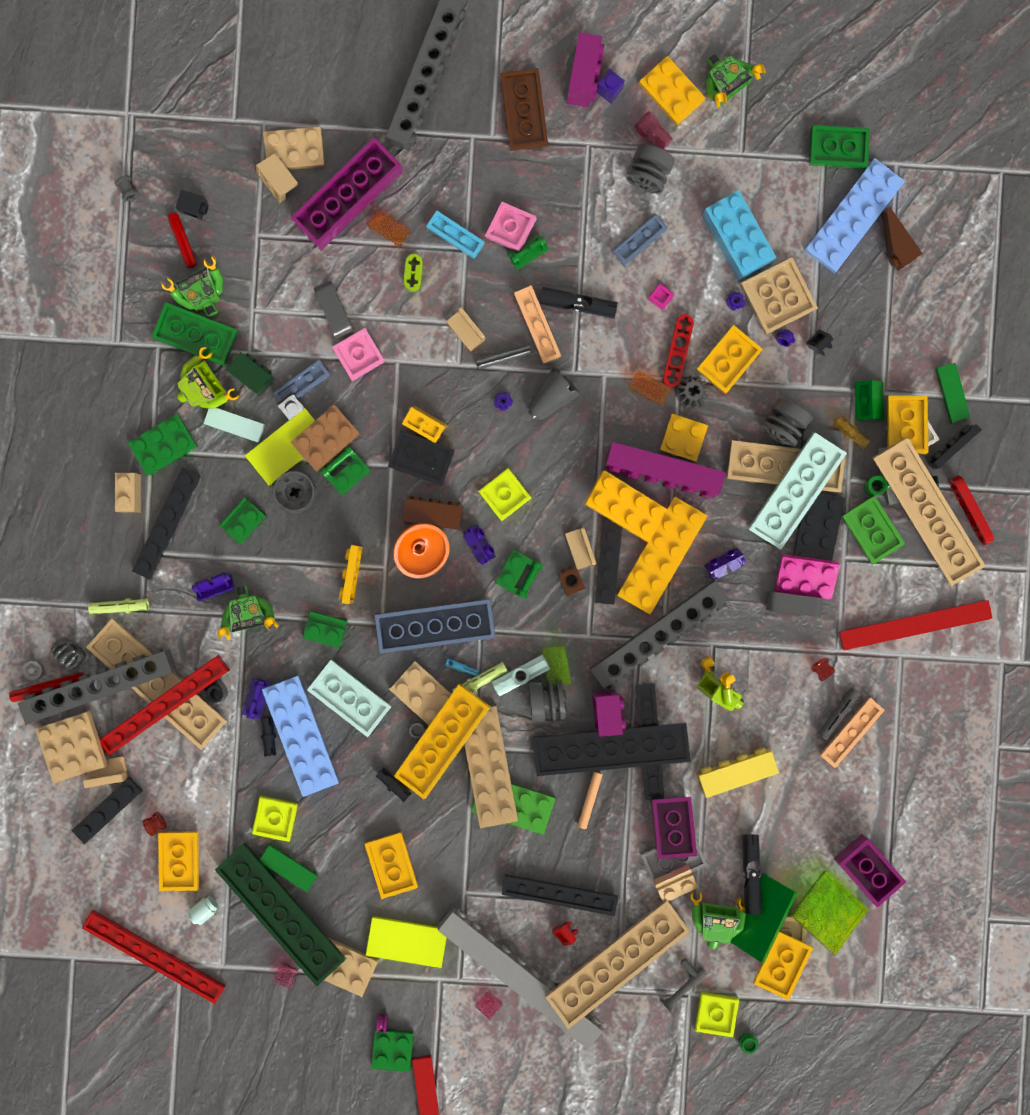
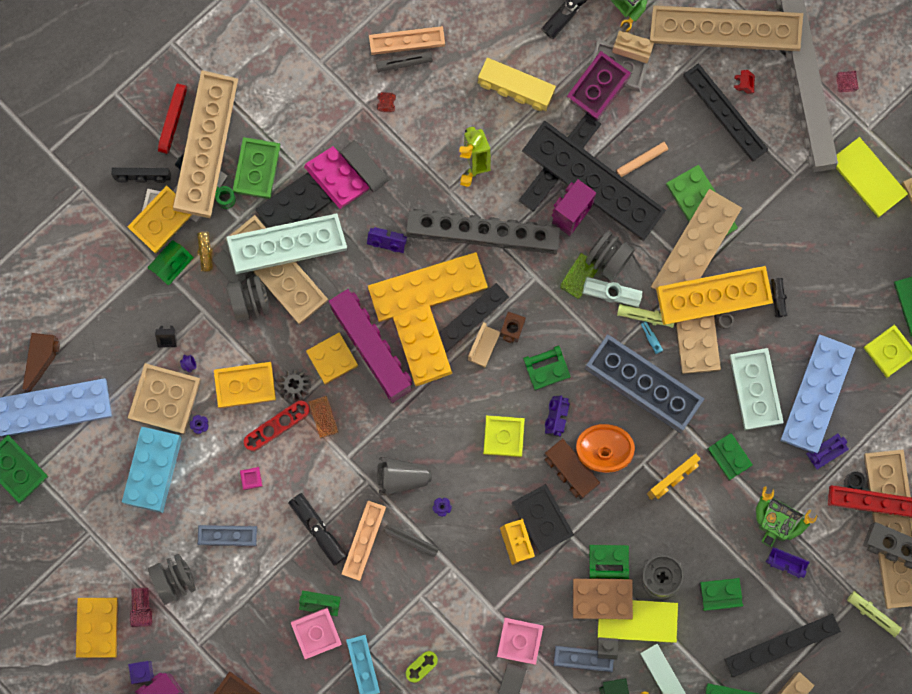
camera: 145 degrees left, 10 degrees down
(268, 736) = (842, 415): black pin -> none
(391, 865) = (831, 241): yellow plate -> none
(466, 330) = (421, 586): tan panel -> none
(729, 78) = (47, 596): torso -> none
(915, 625) = (289, 74): red tile -> none
(952, 393) = (104, 214): green tile -> none

